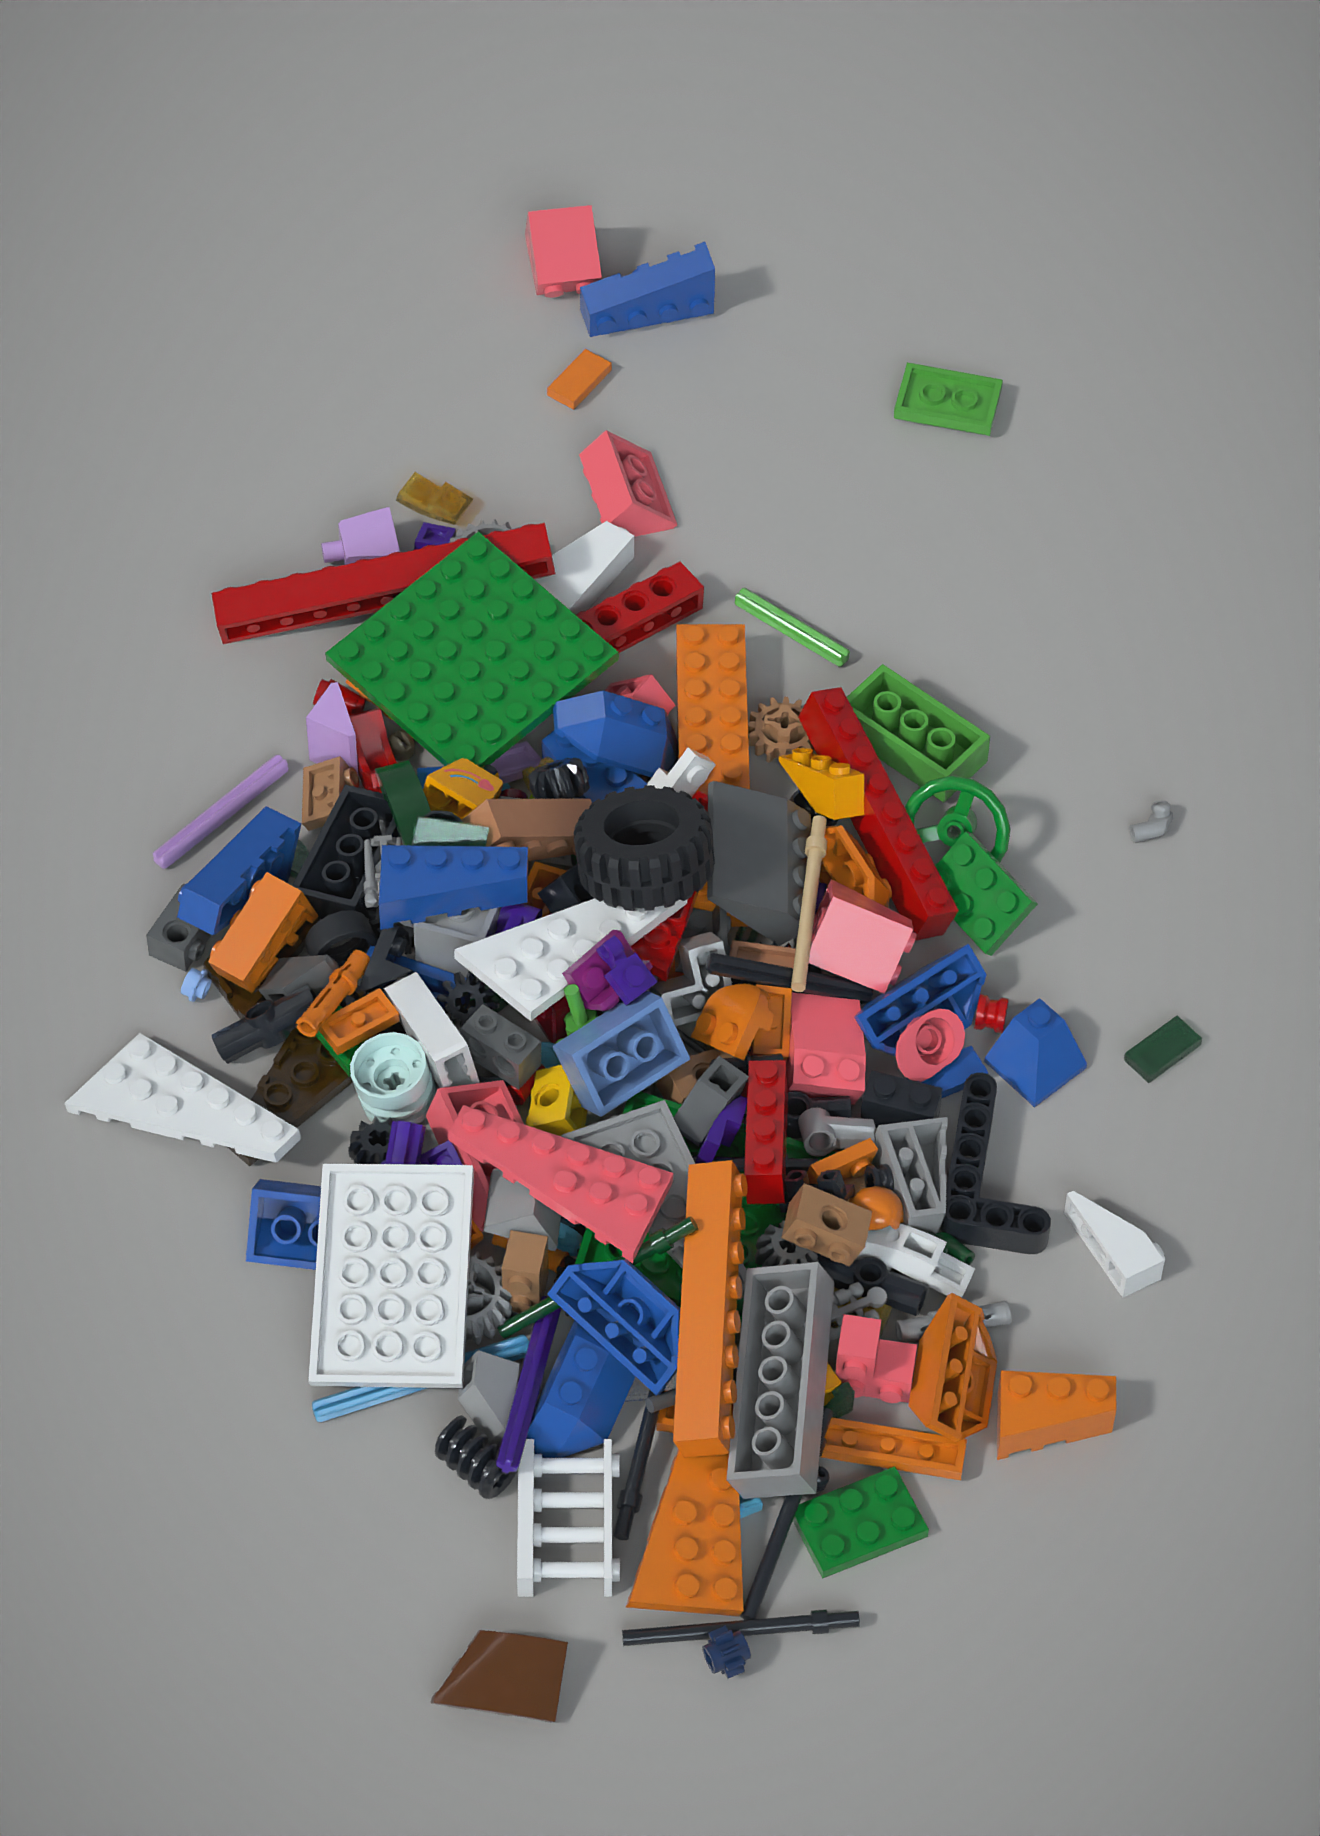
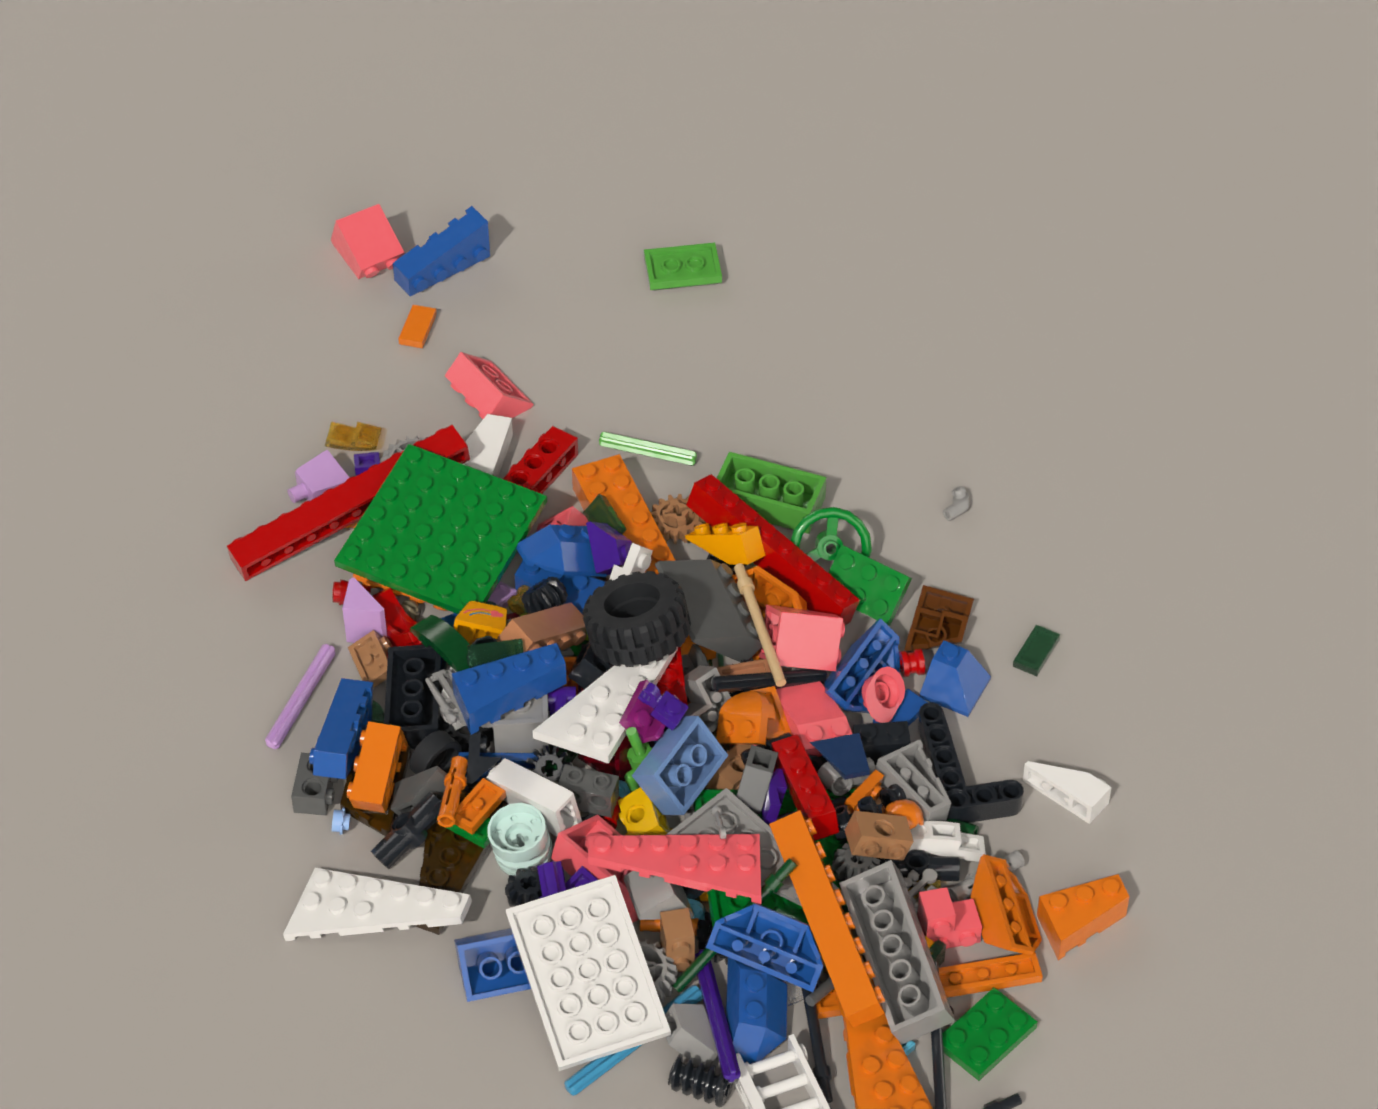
camera: 20 degrees left, 5 degrees down
(636, 1126) = (716, 812): none -> light grey hinge
(664, 739) = (607, 547): none -> dark purple slope
(682, 706) = (602, 512): none -> clear green tile
(833, 1106) = (845, 755): none -> dark blue slope
(1054, 968) = (938, 618): none -> reddish brown slope

